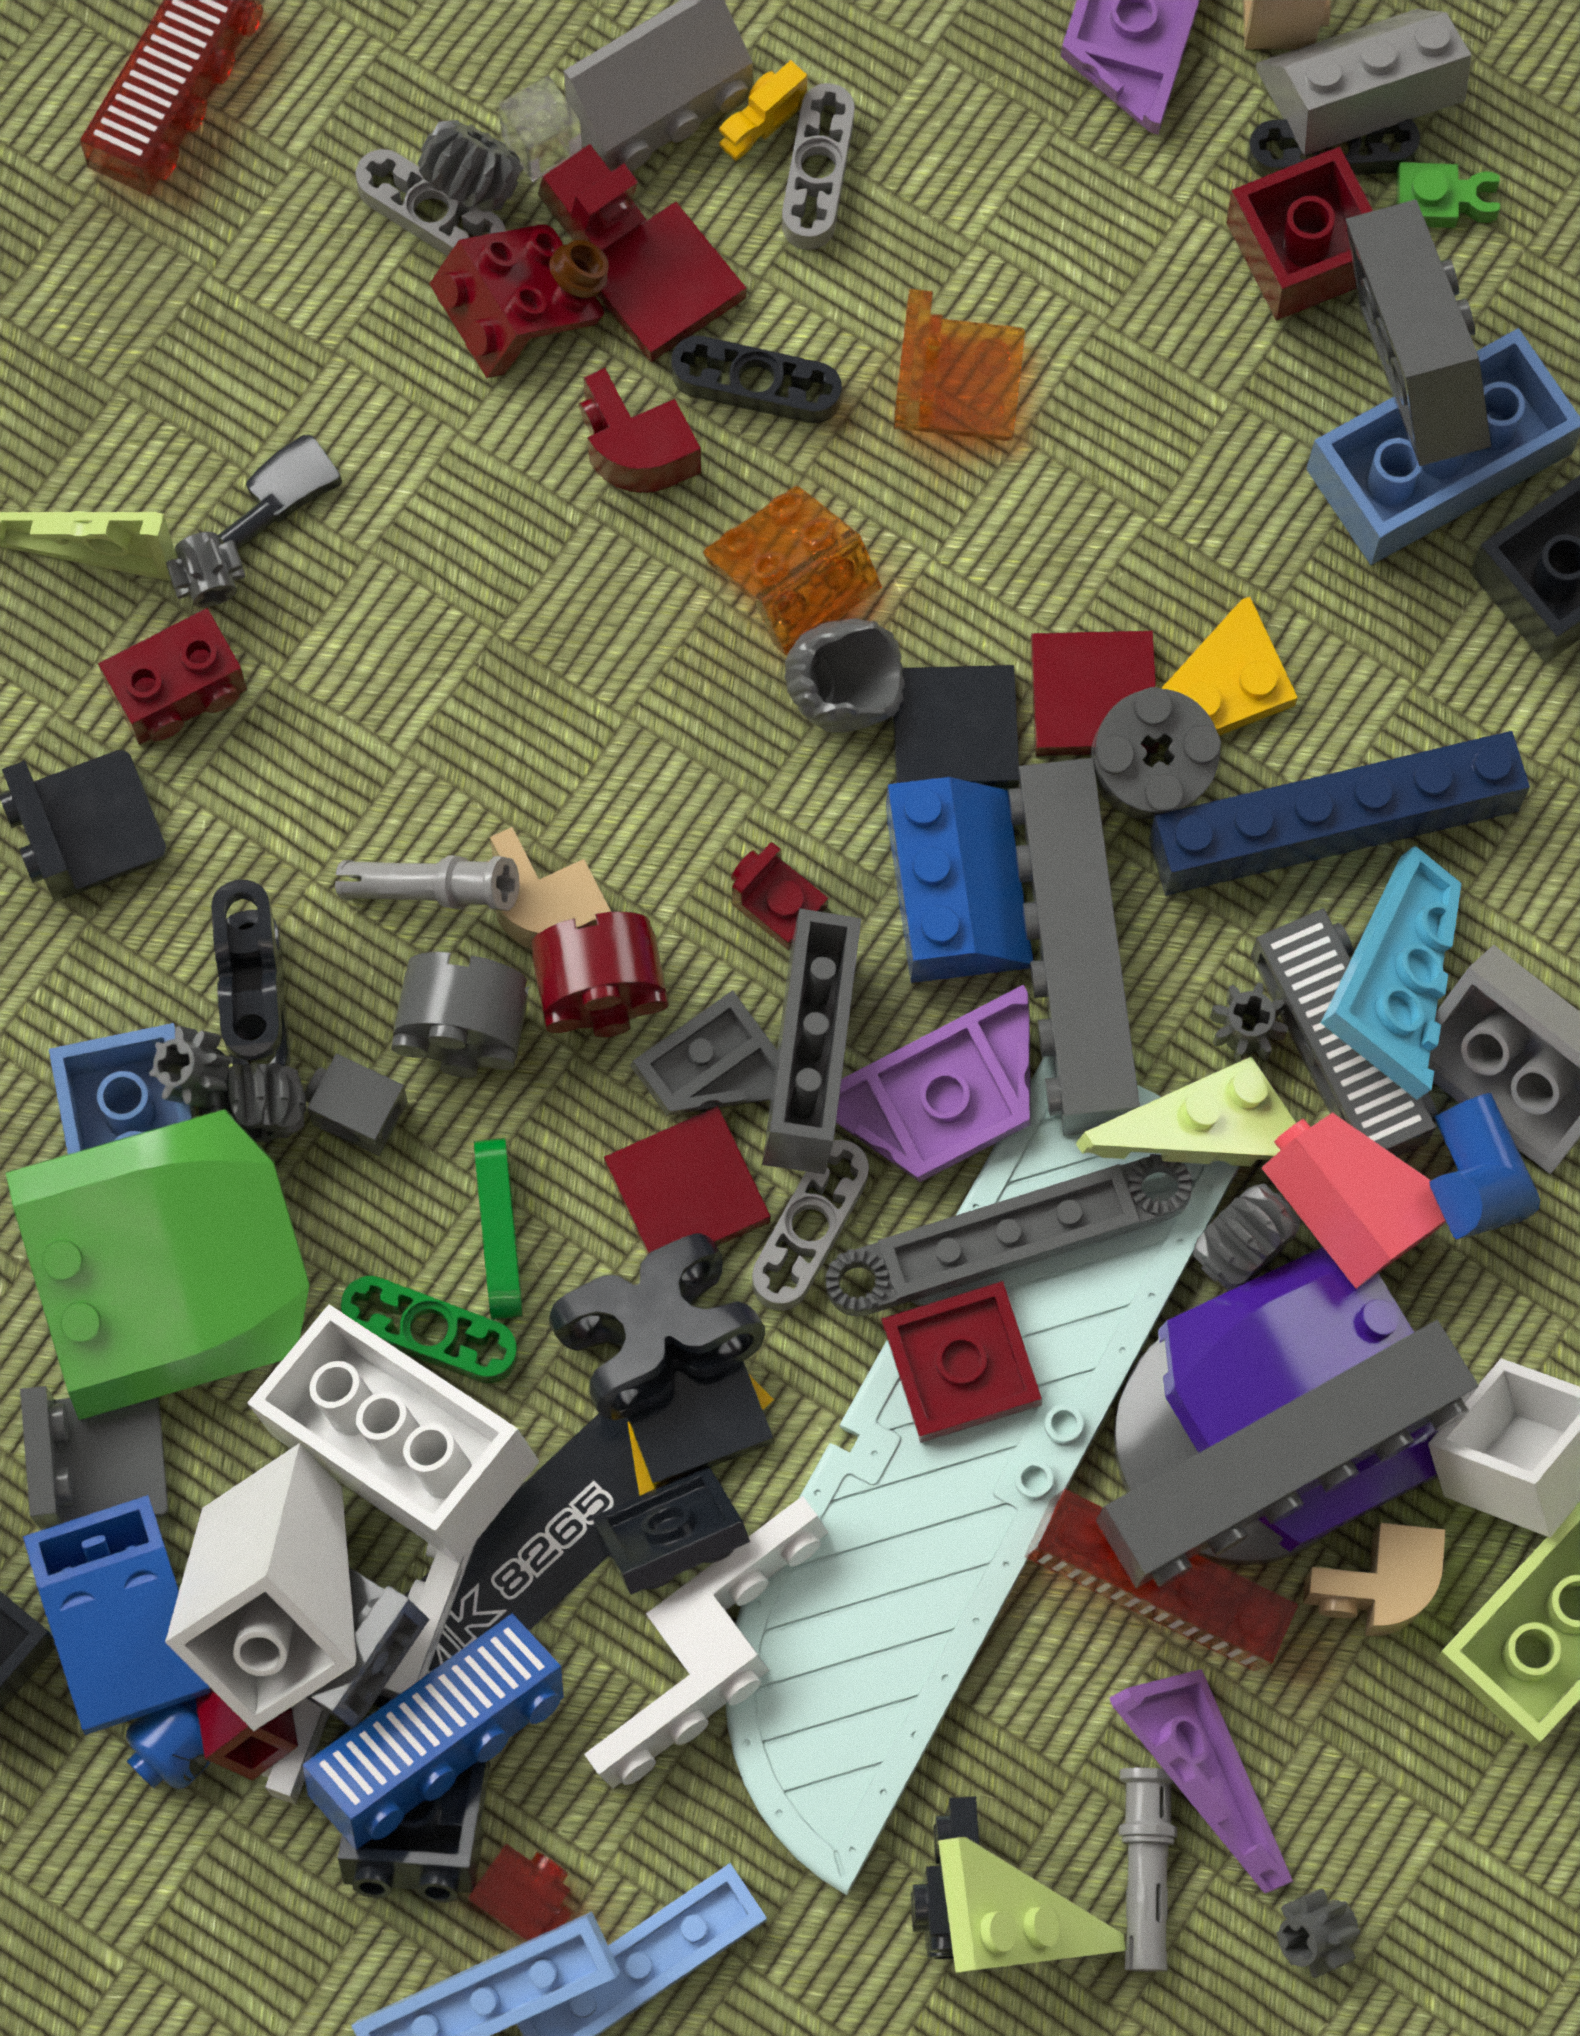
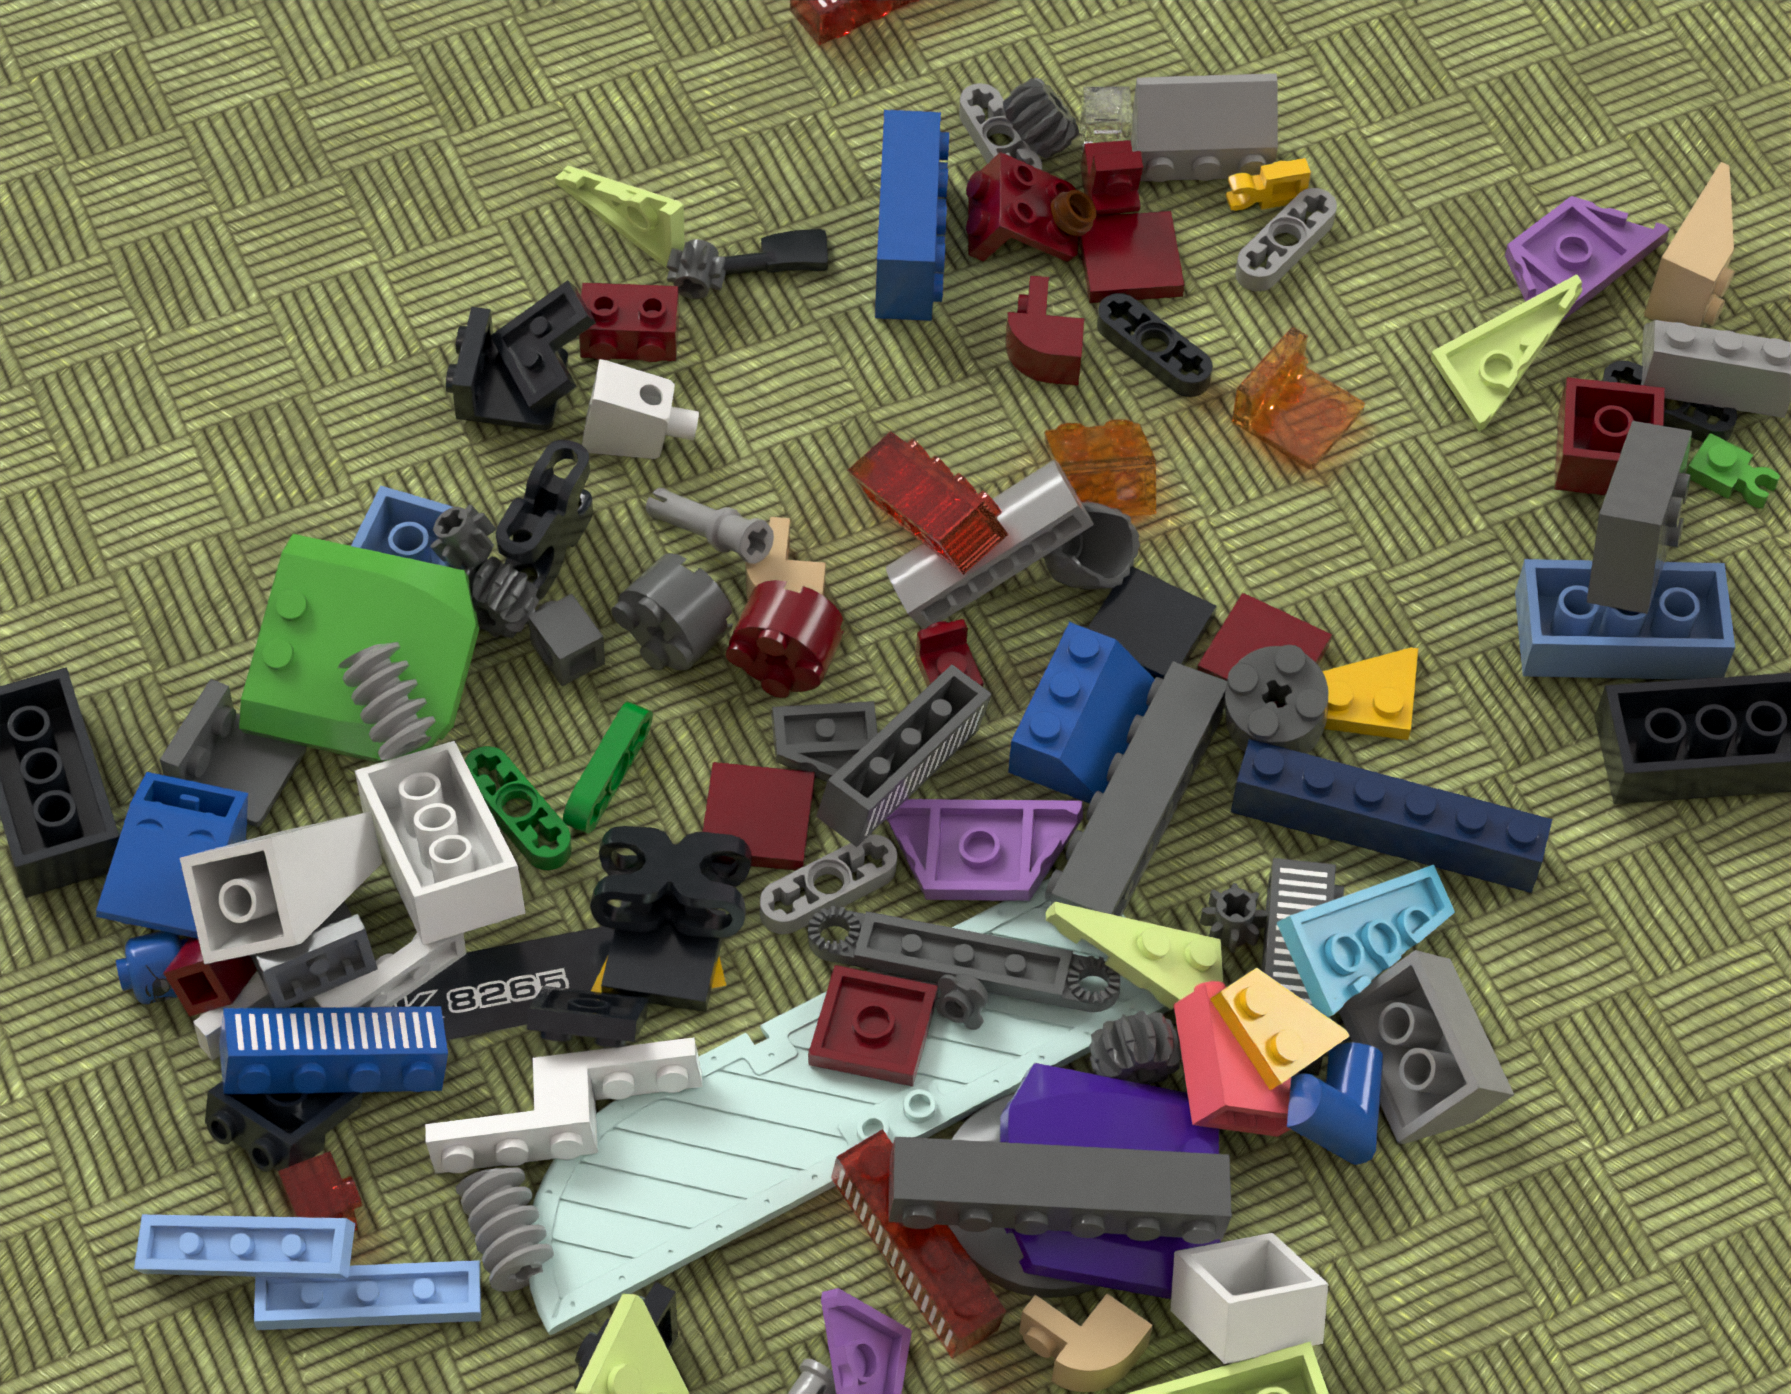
camera: 30 degrees right, 15 degrees down
(91, 769) = (532, 345): none -> black plate
(242, 1307) = (387, 700): none -> light grey piece
(256, 793) = (633, 413): none -> white torso
(405, 373) = (911, 215): none -> blue brick
(658, 729) = (929, 501): none -> clear red brick
(732, 1809) = (504, 1226): none -> light grey piece
(743, 738) = (1038, 517): none -> light grey brick
(1039, 1283) = (962, 999): none -> dark grey plate
(1126, 198) = (1494, 356): none -> yellowish green wing
(1385, 1139) = (1275, 1026): none -> yellow wing

